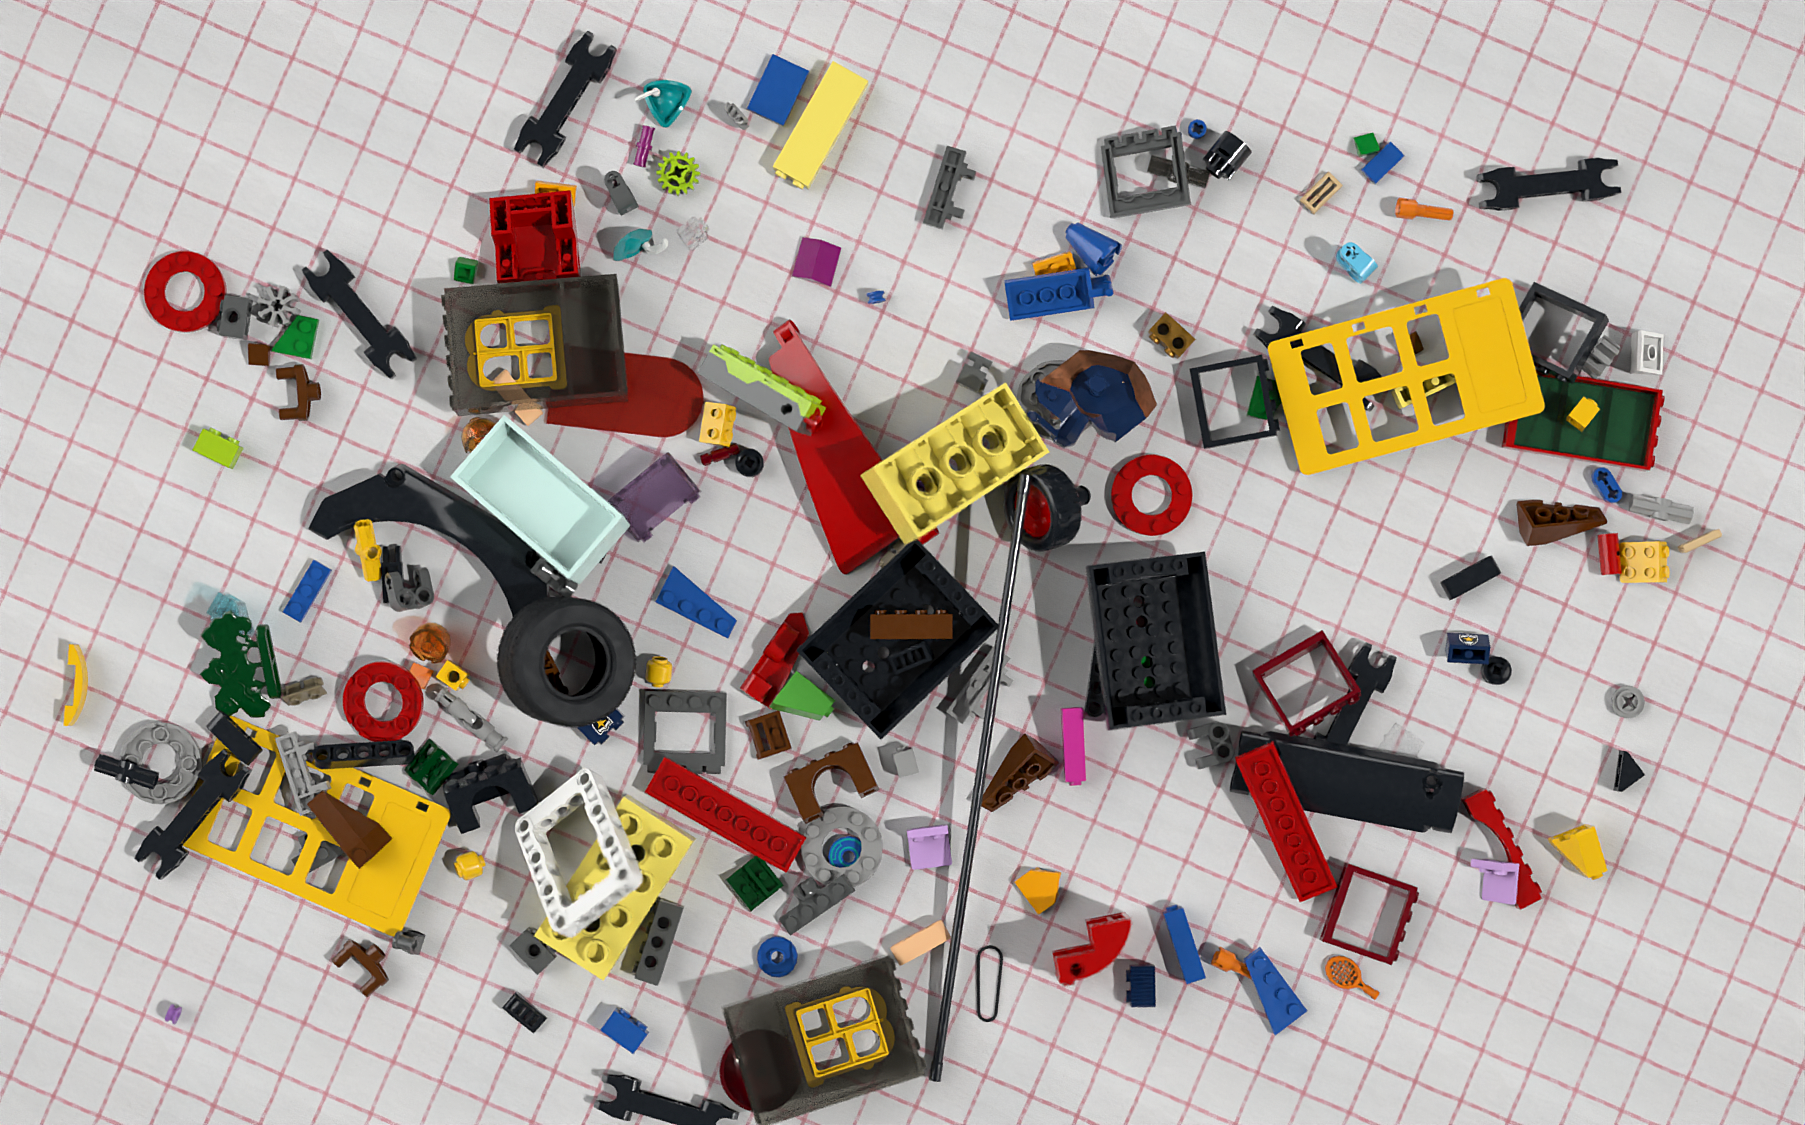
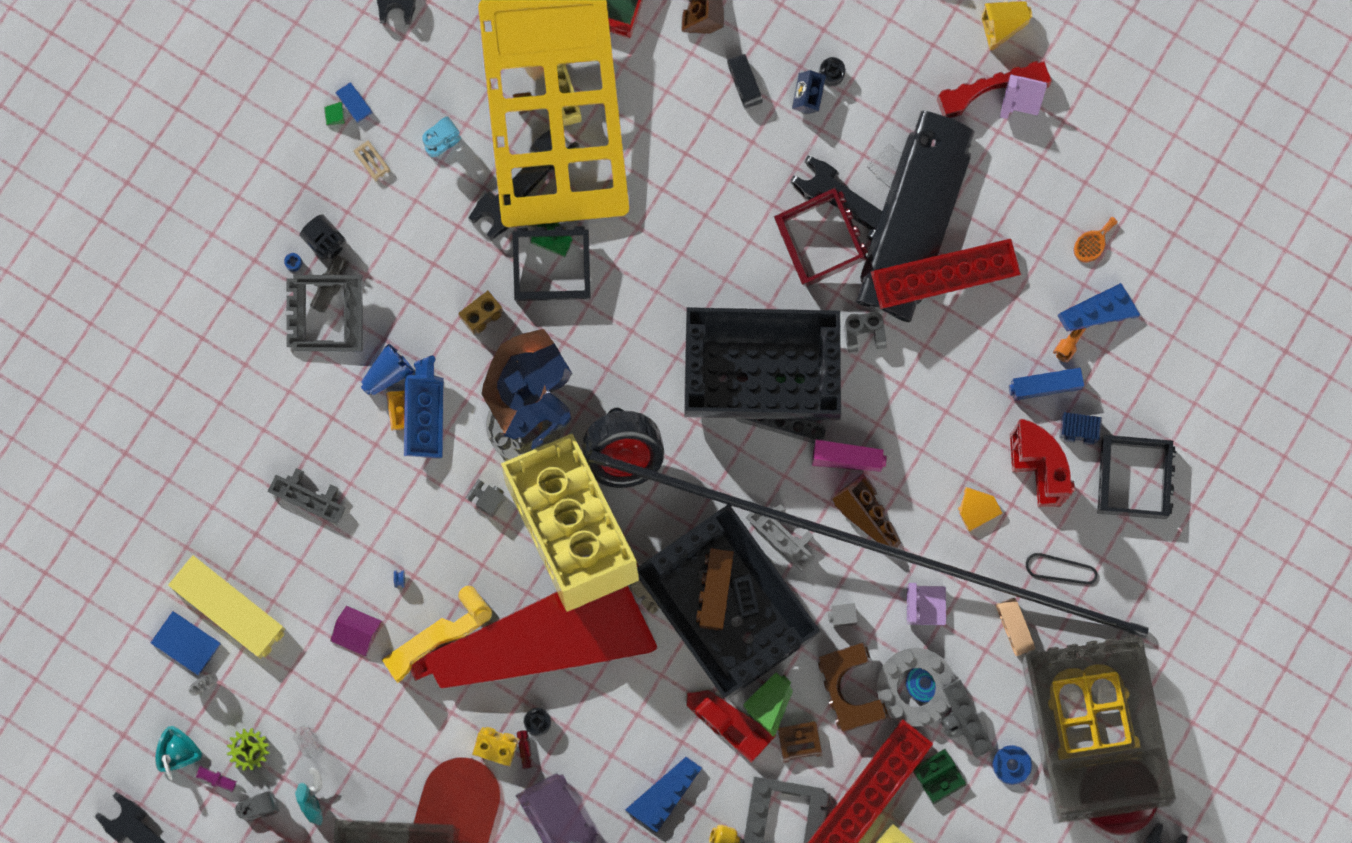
camera: 85 degrees left, 10 degrees down
(763, 389) = (471, 694): piece -> none
(824, 347) = (440, 632): none -> yellow door
(1091, 1017) = (1104, 475): none -> black window
(1151, 524) = (630, 379): red plate -> none
(1337, 903) = (1026, 241): dark red window -> none
(1410, 209) = (400, 84): orange piece -> none

